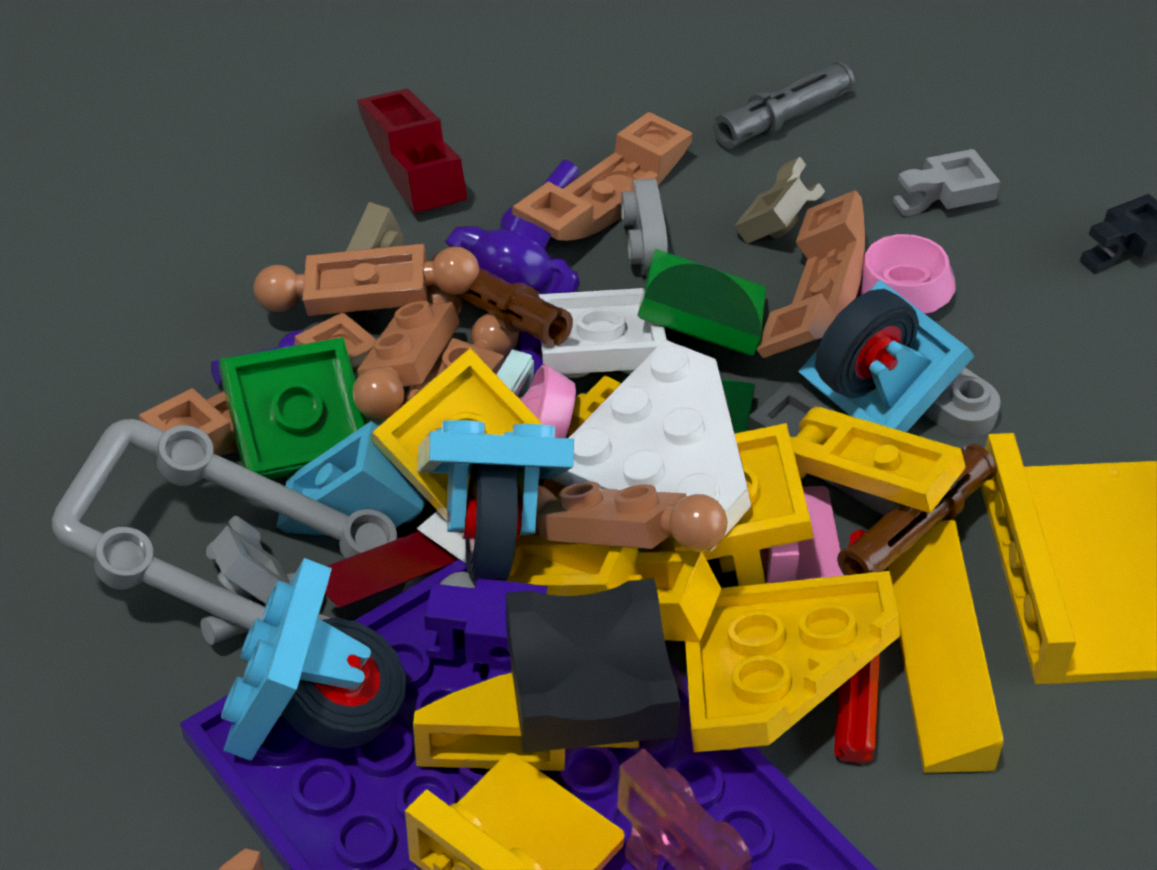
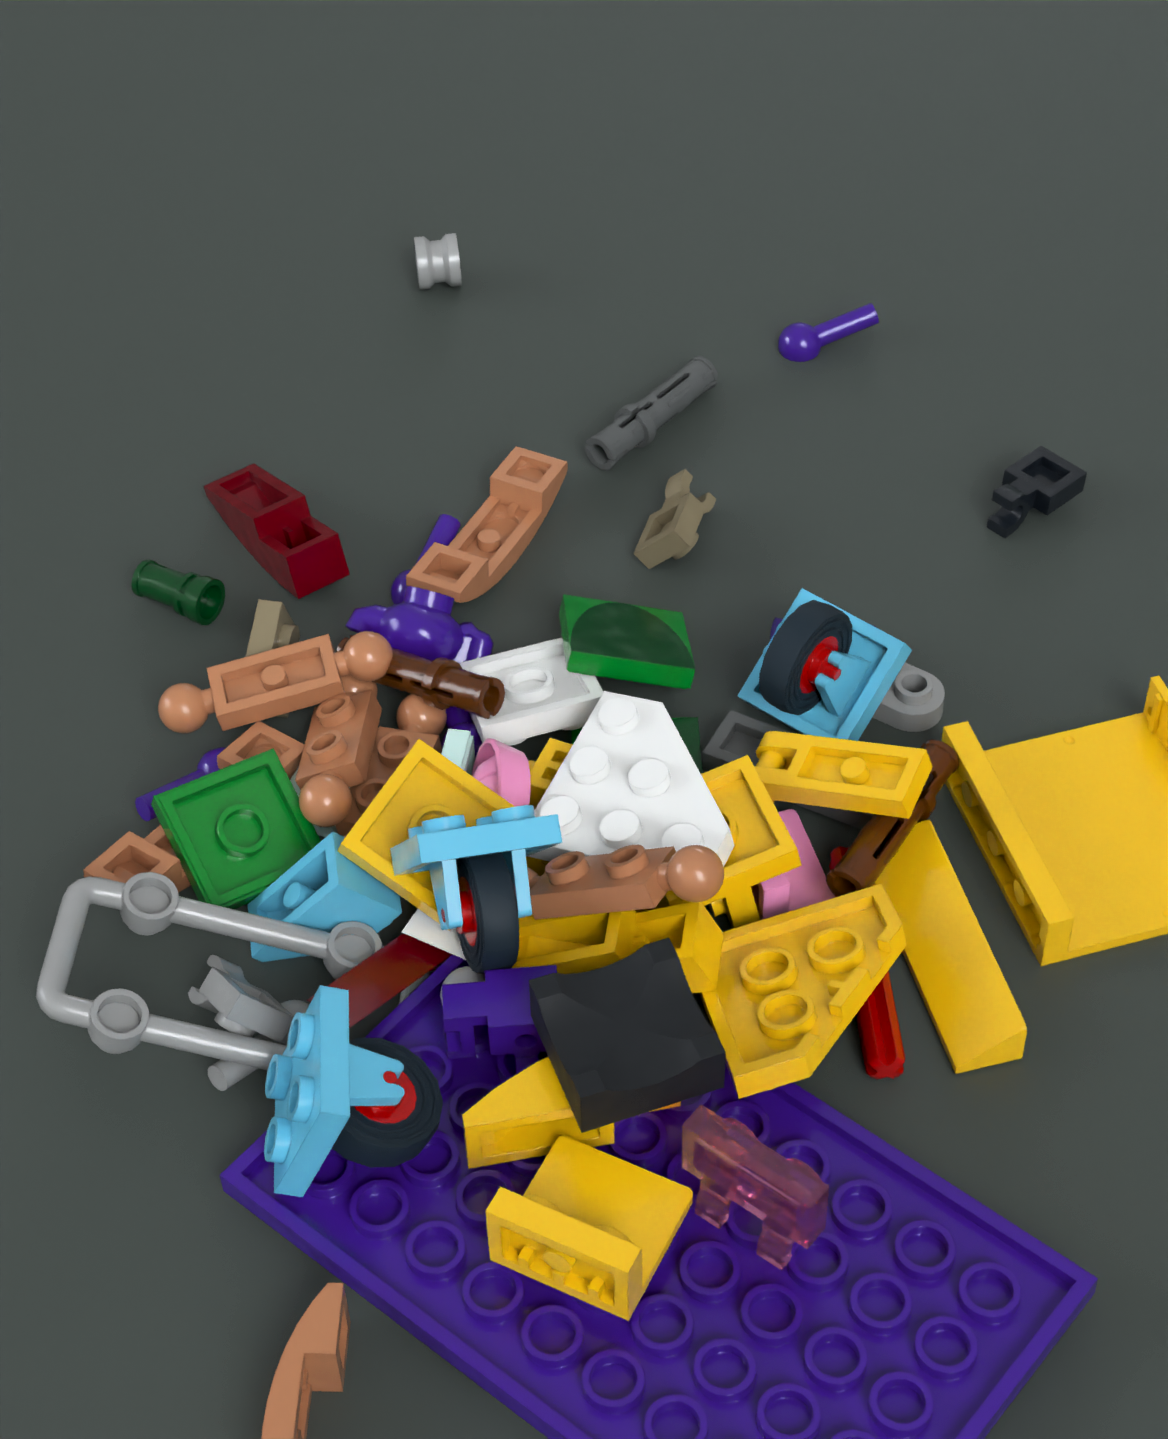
camera: 10 degrees left, 0 degrees up
(316, 190) = (189, 594): none -> dark green pin
(644, 212) = (549, 574): light grey plate -> none
(834, 249) = (745, 595): nougat slope -> none
(912, 268) = (823, 566): bright pink hat -> none
(944, 66) = (803, 342): none -> dark purple bar
(953, 178) = (843, 462): light grey plate -> none

